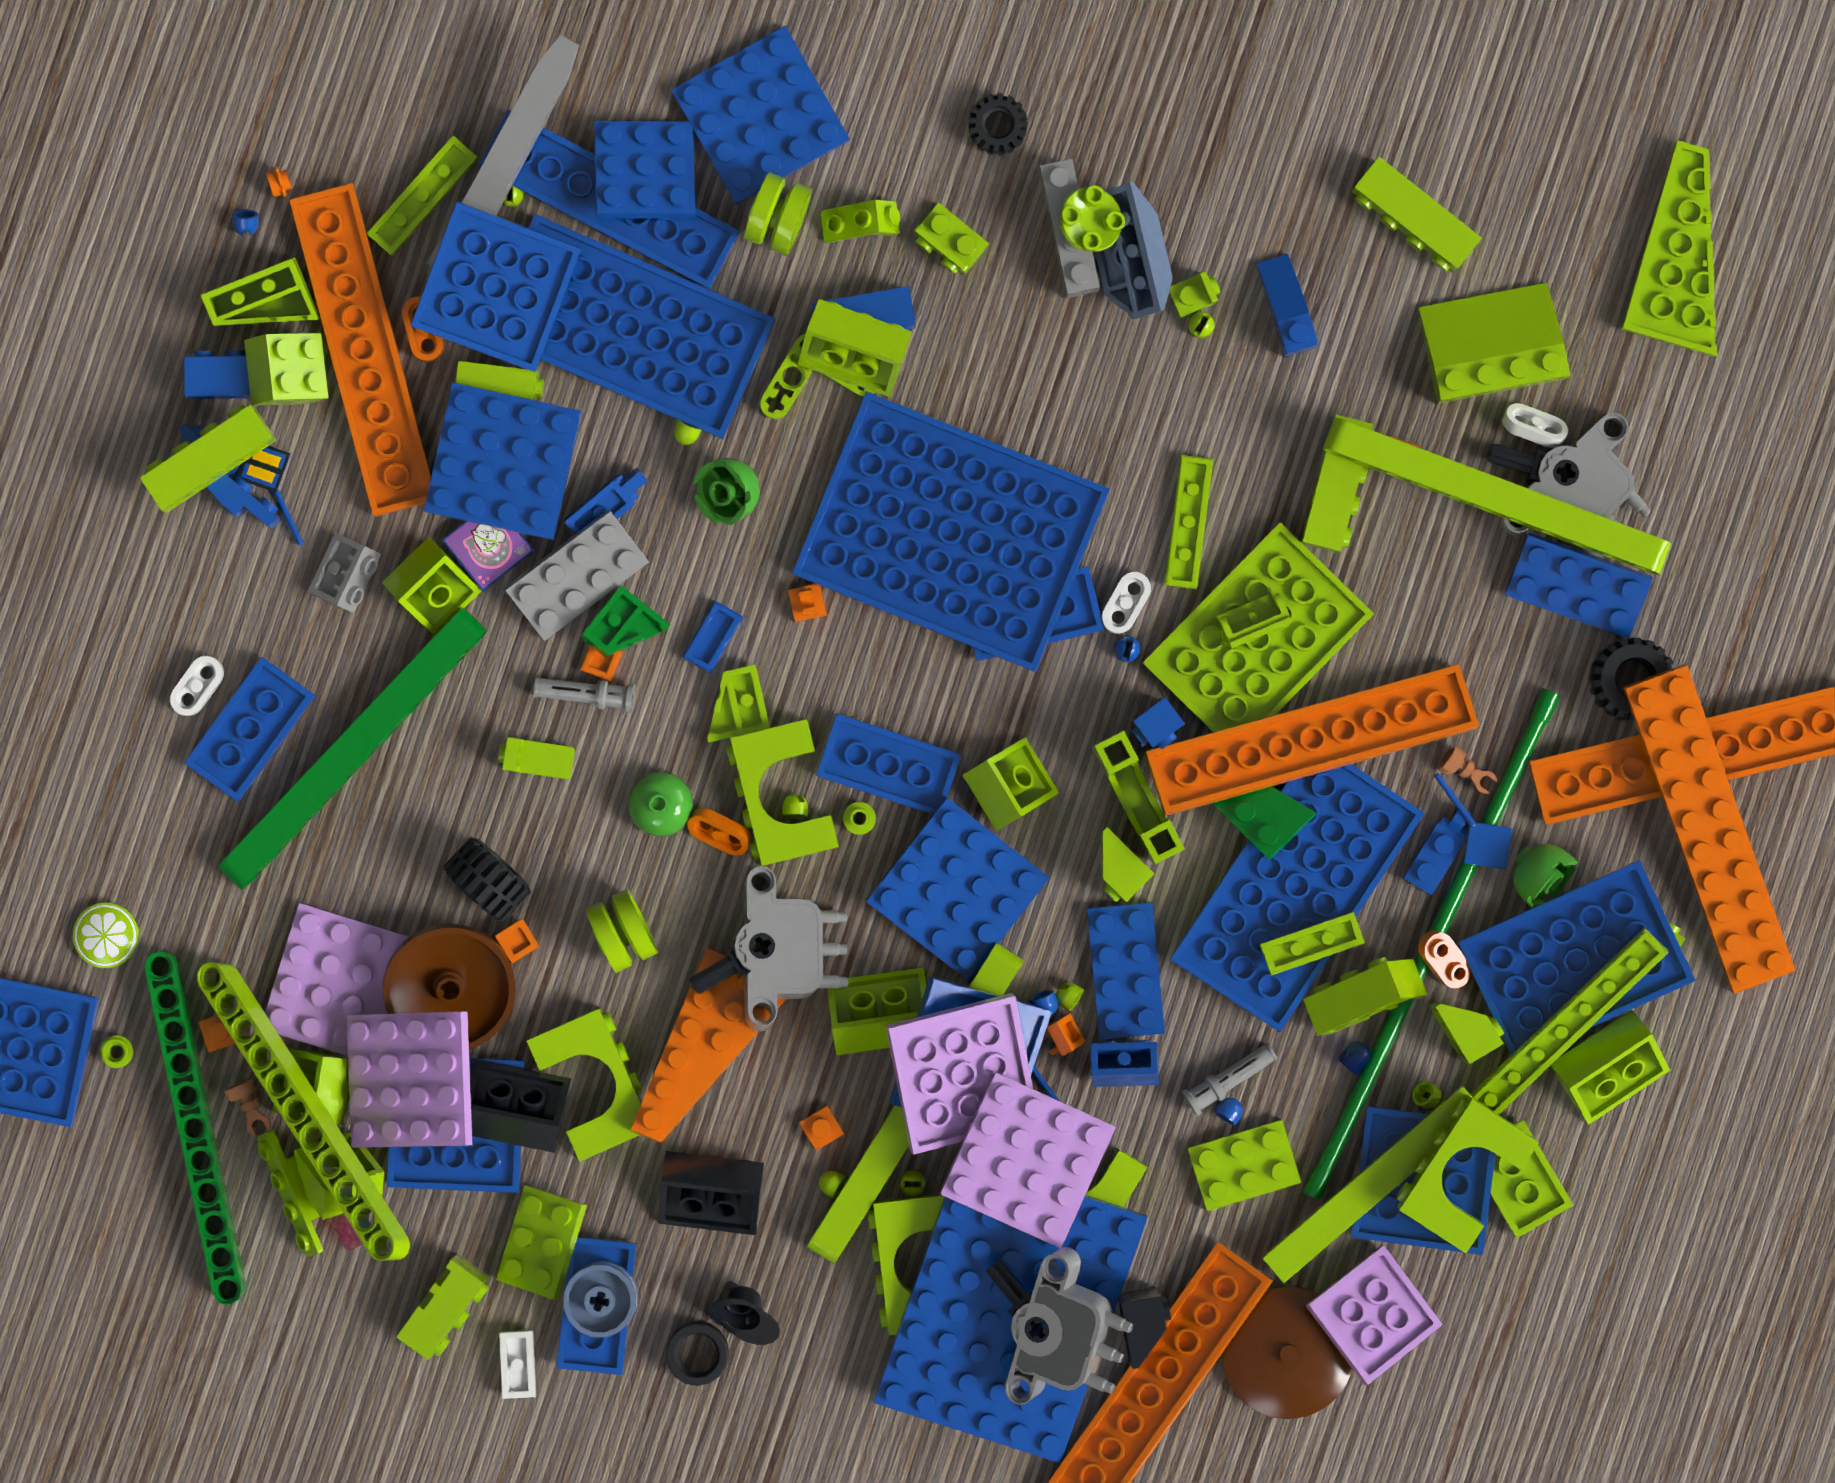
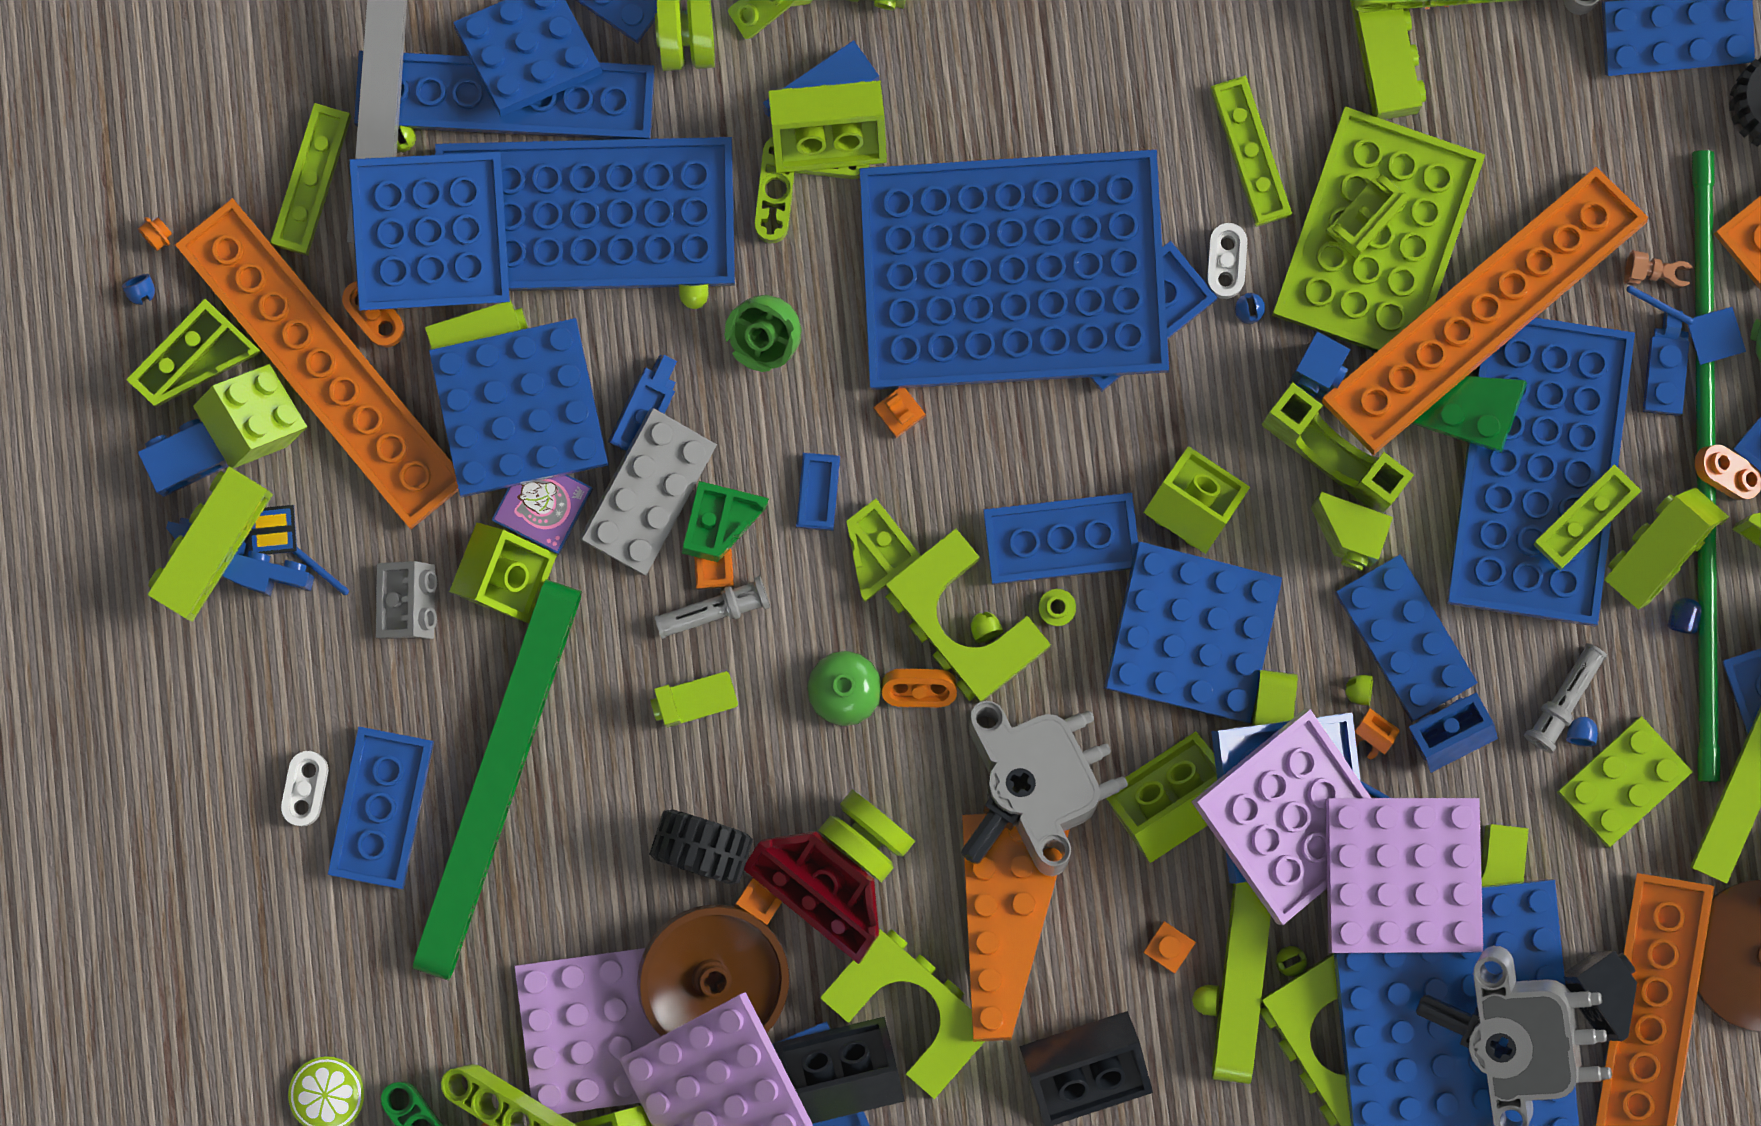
camera: 25 degrees left, 5 degrees down
(566, 955) = (820, 888): none -> dark red wedge
(1045, 999) = (1338, 705): blue hinge -> none

